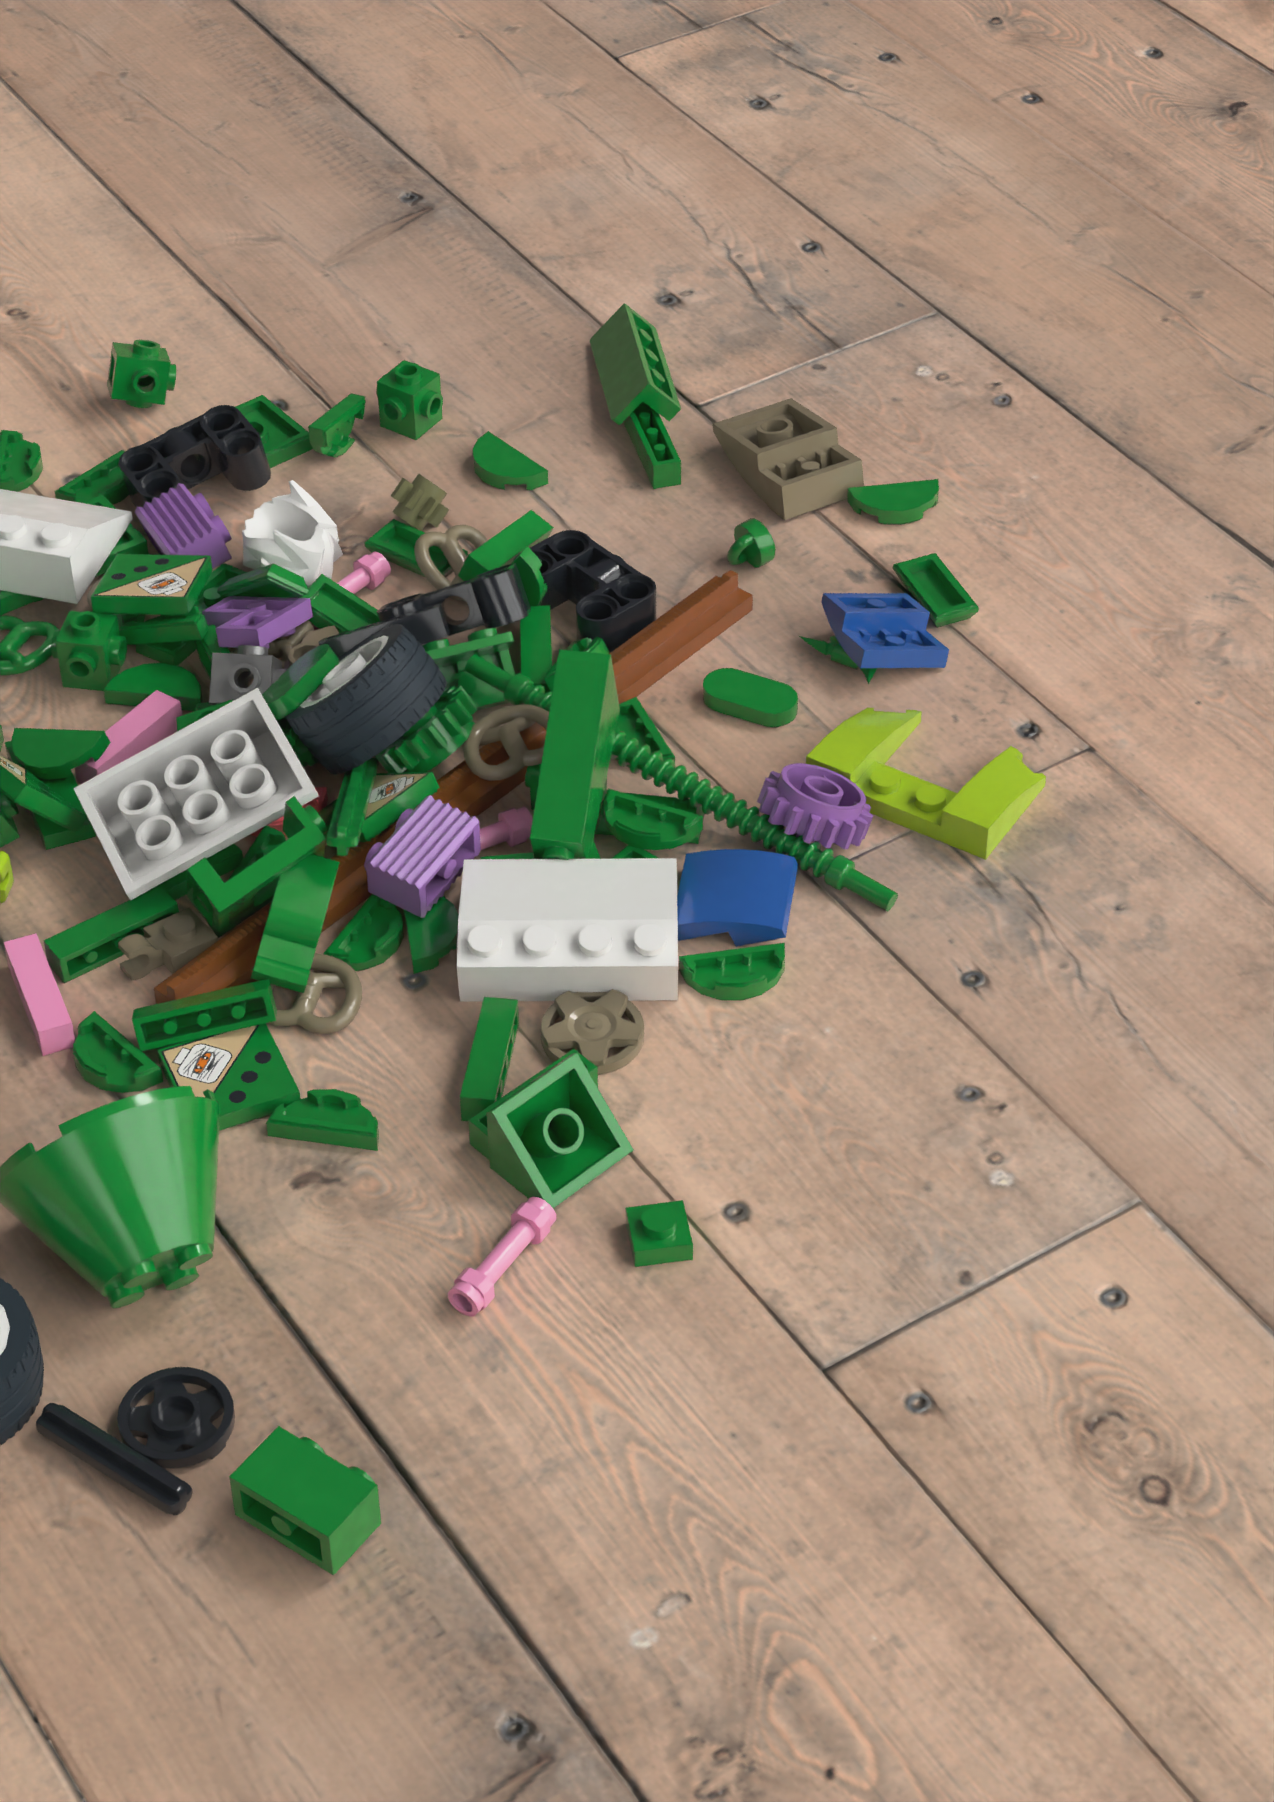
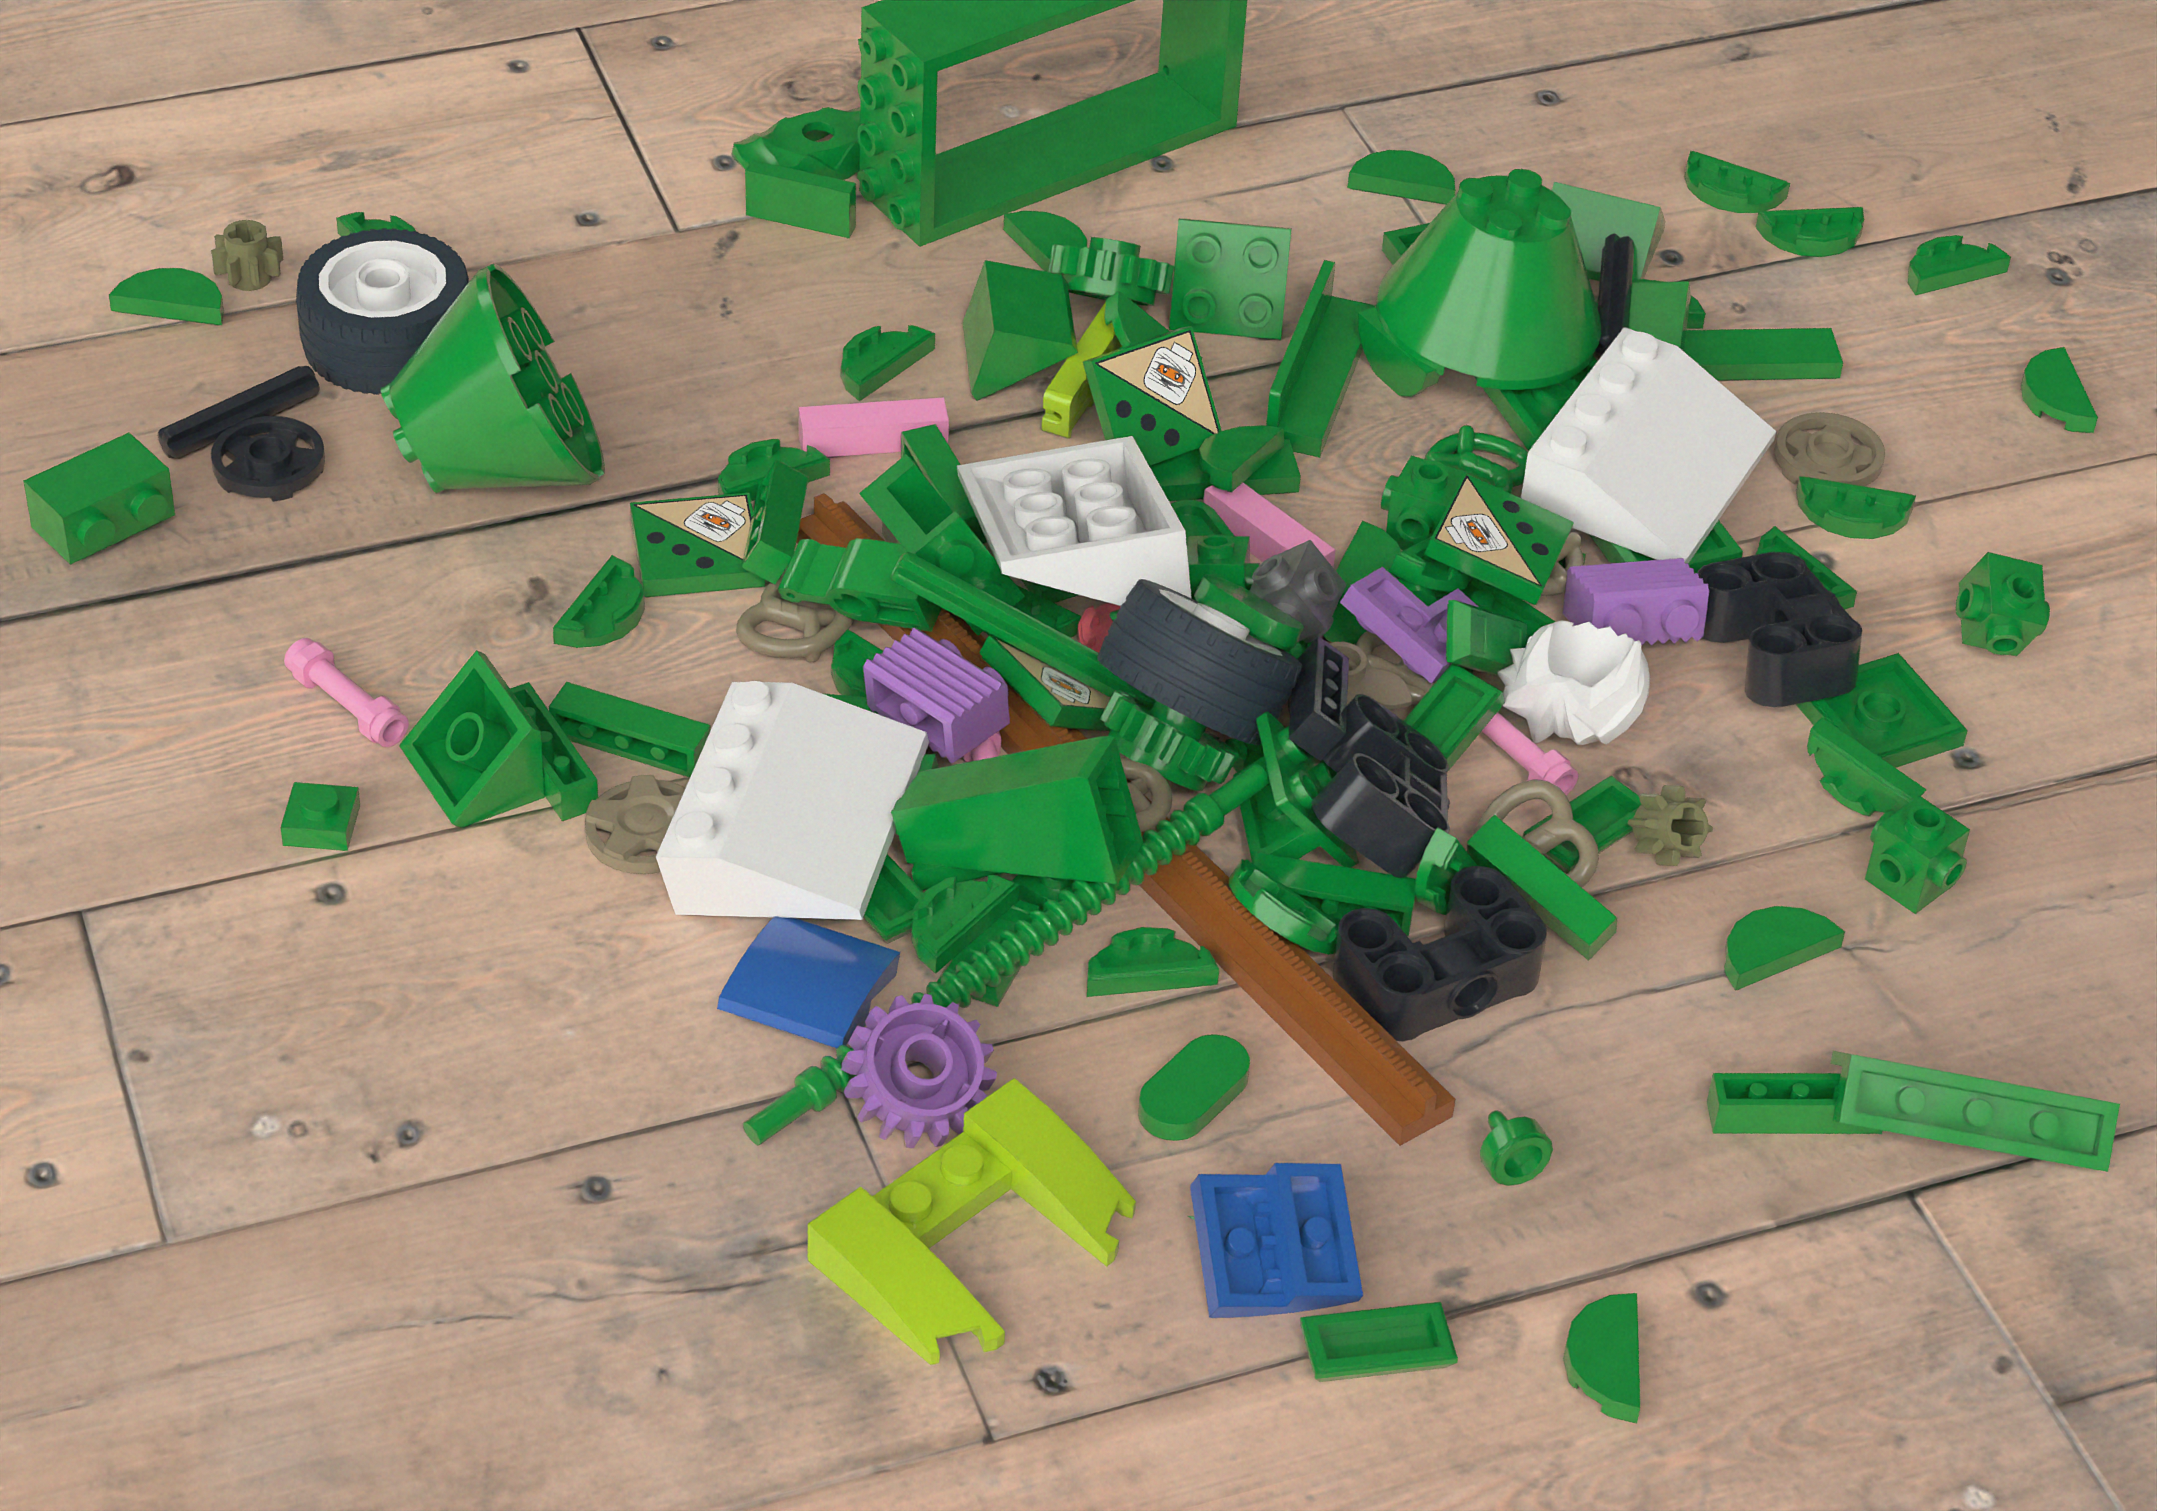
camera: 100 degrees right, 0 degrees up
(734, 972) = (688, 965): green tile -> none
(789, 457) = (1726, 1242): dark tan slope -> none

